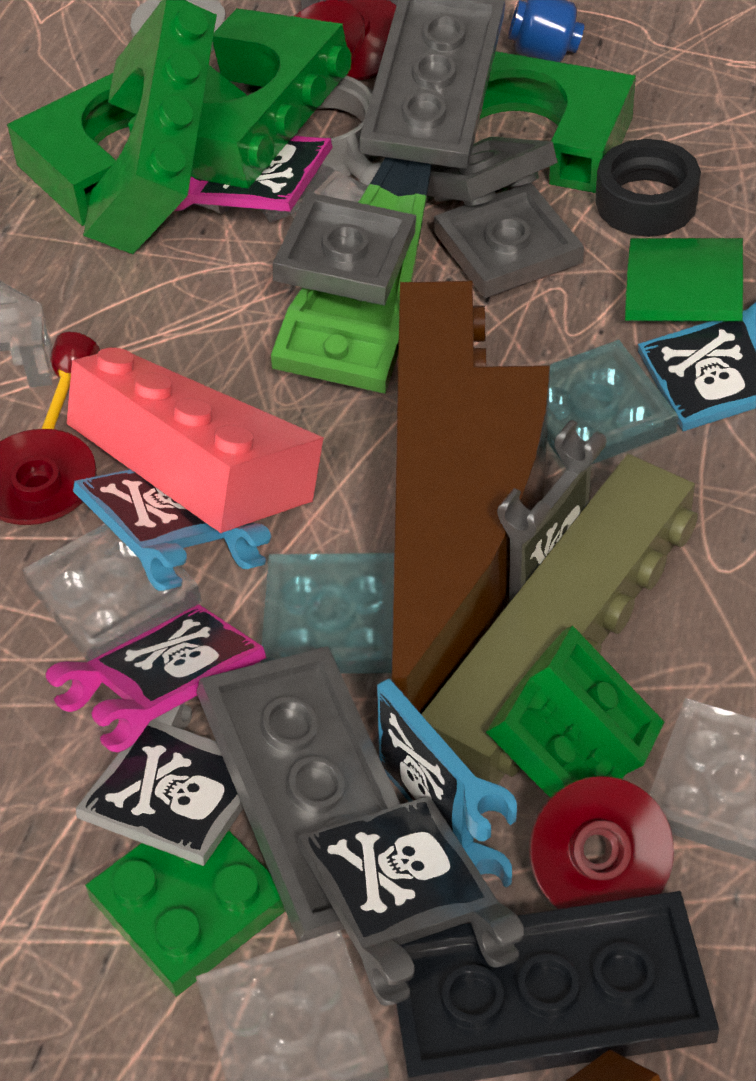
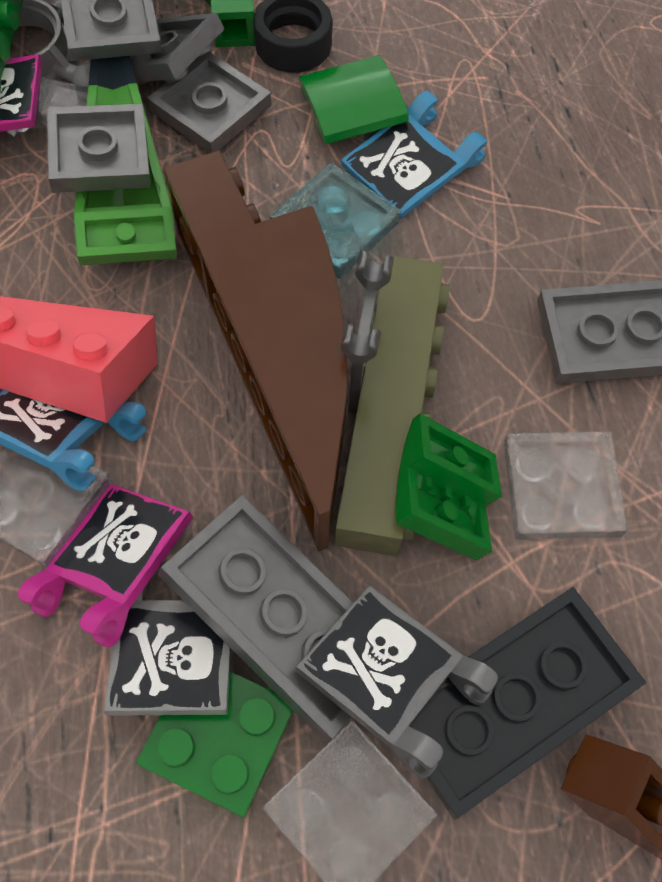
camera: 30 degrees left, 15 degrees up
(331, 603) = (220, 456): clear light blue plate -> none
(426, 766) = (362, 566): flag -> none
(635, 836) = (522, 580): dark red dish -> none

